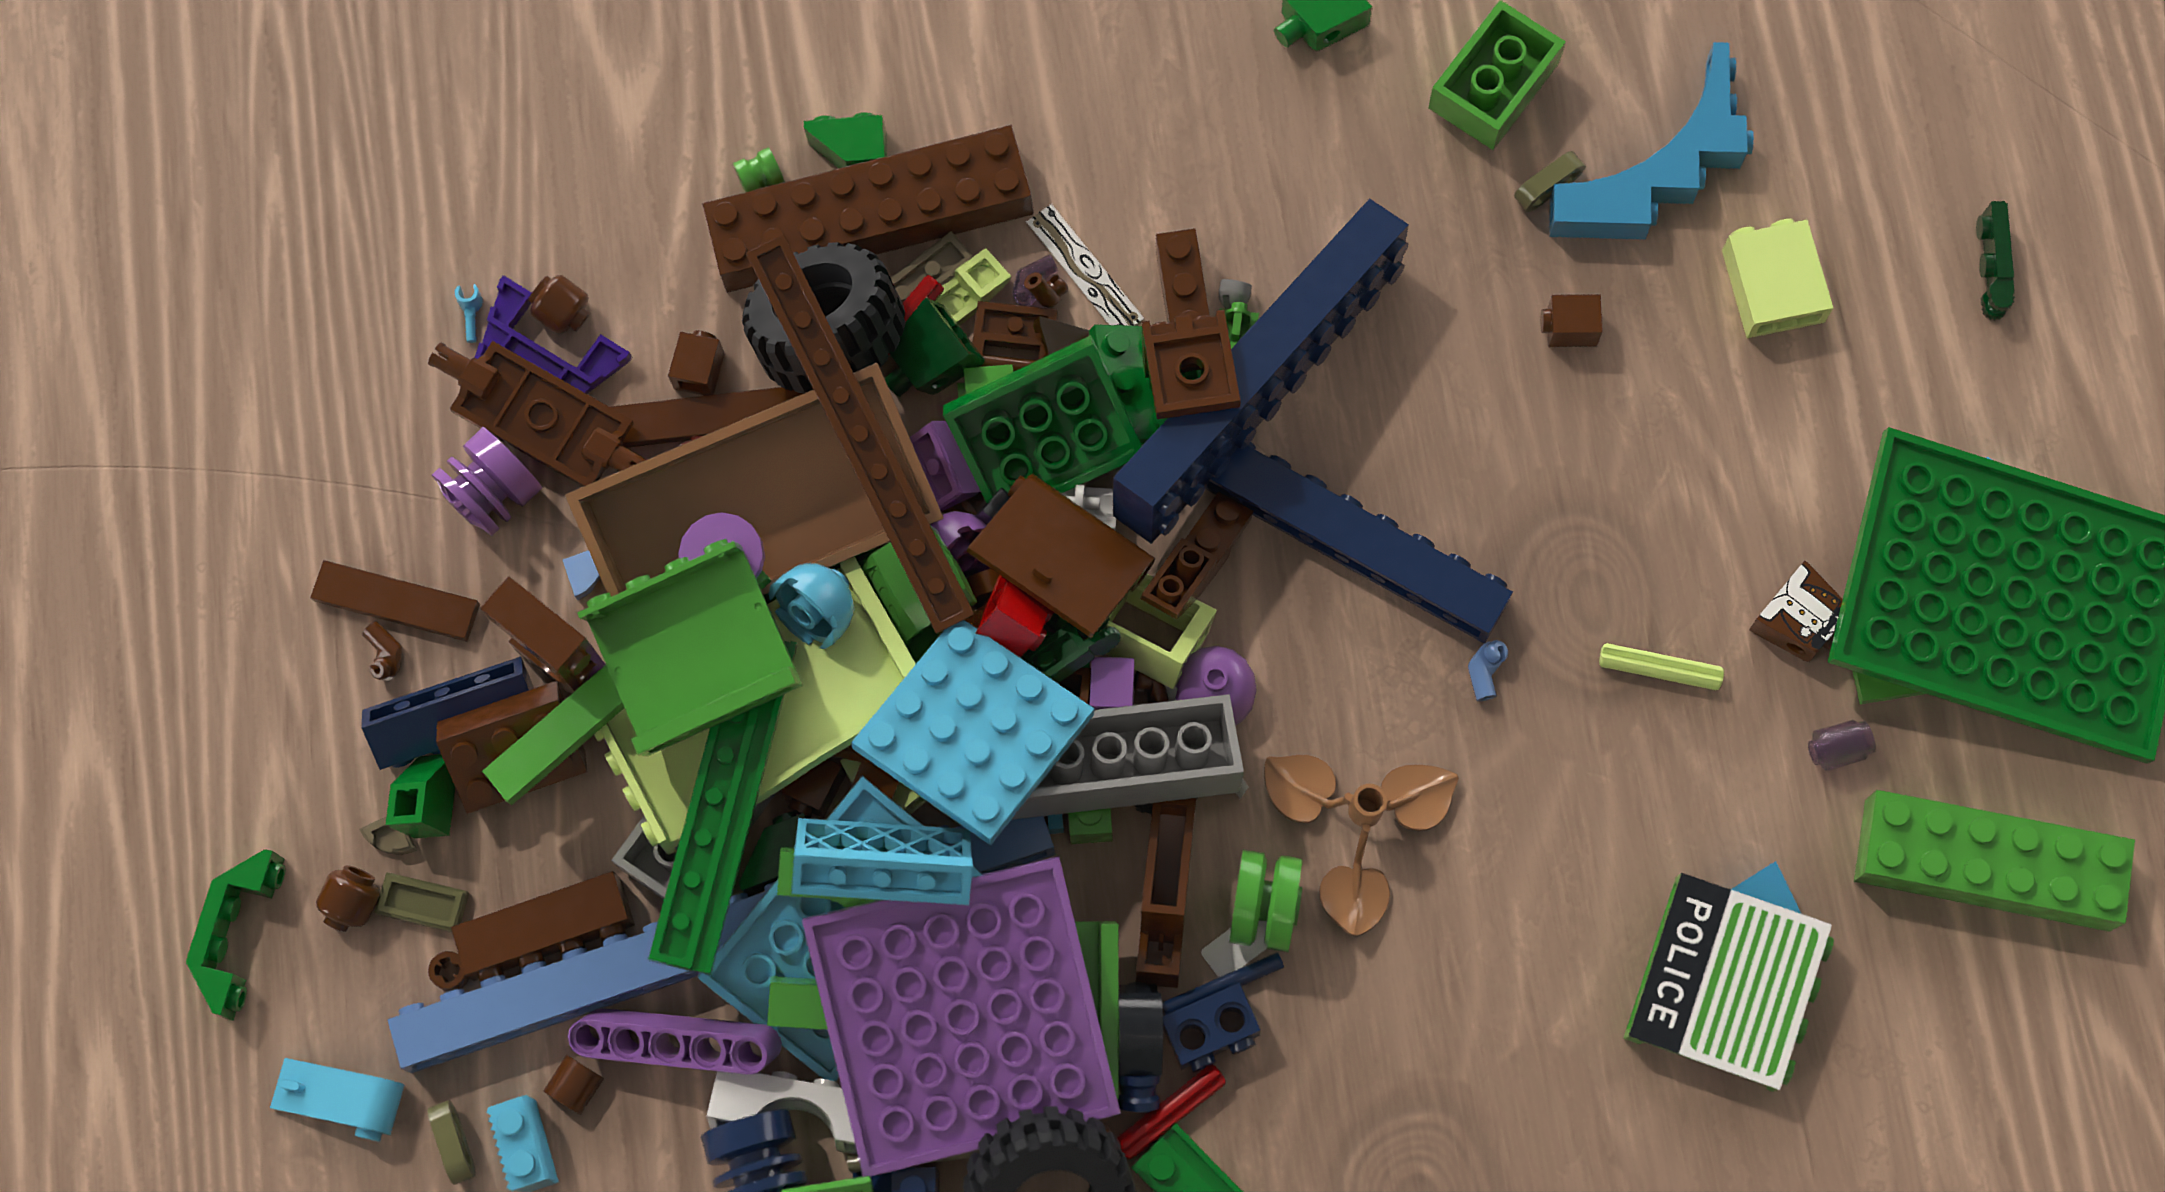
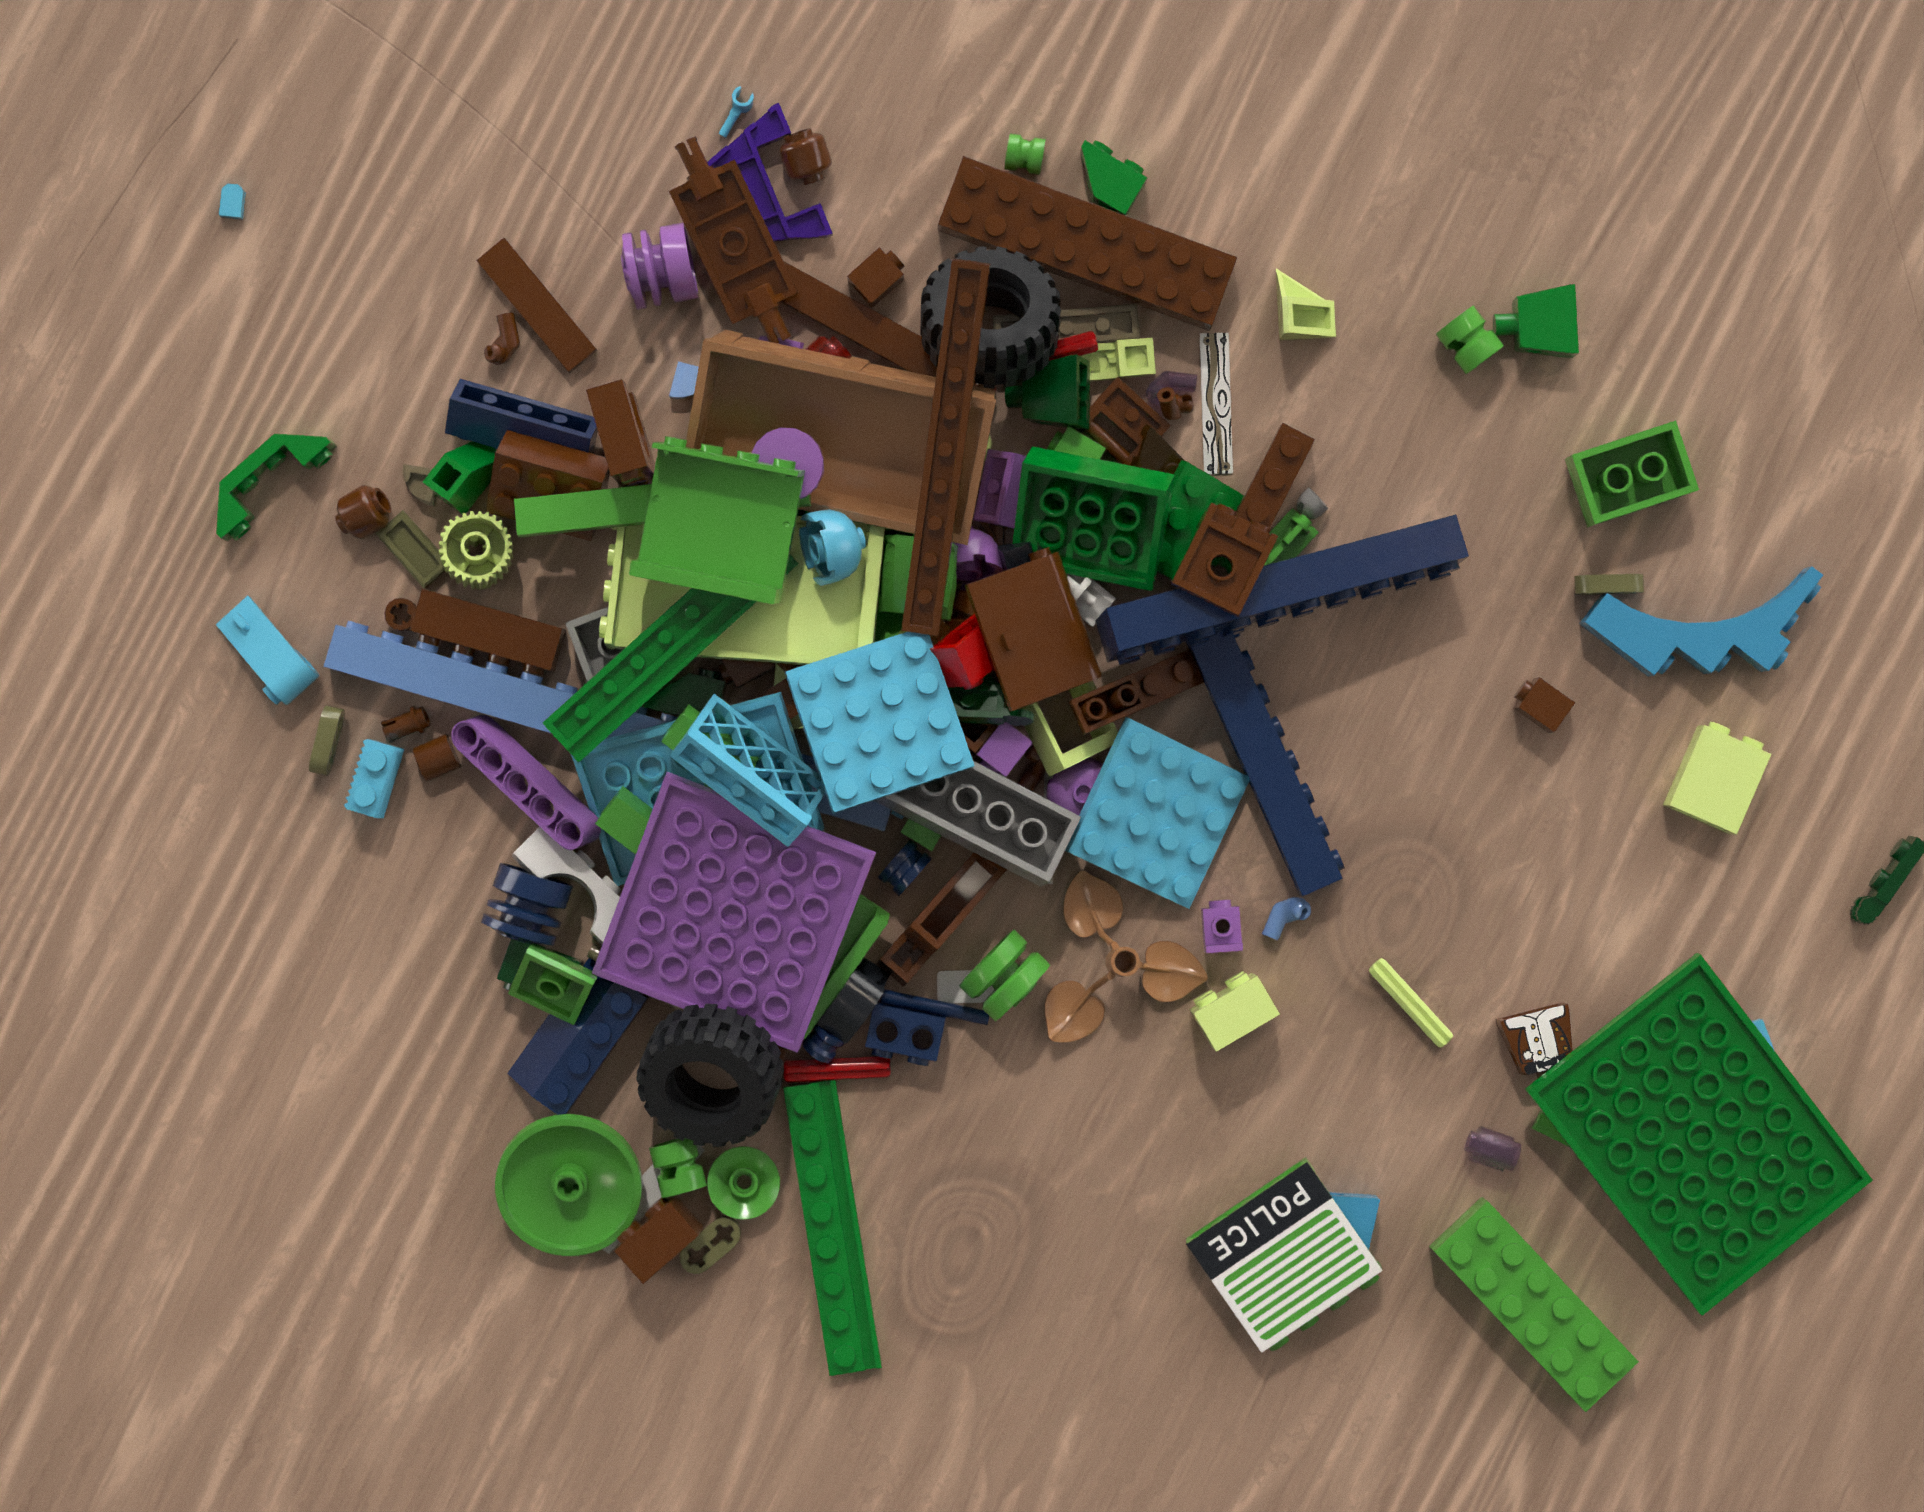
camera: 30 degrees right, 15 degrees up
(41, 702) = (232, 201): none -> medium azure piece
(461, 850) = (471, 530): none -> yellowish green brick
(521, 1072) = (406, 724): none -> reddish brown pin
(1098, 869) = (904, 867): none -> dark blue wheel
(1104, 142) = (1302, 312): none -> yellowish green slope
(1268, 62) = (1469, 339): none -> bright green wheel
(1298, 653) = (1157, 813): none -> medium azure plate
(1435, 733) = (1216, 941): none -> medium lavender brick
(1508, 778) = (1233, 1010): none -> yellowish green brick

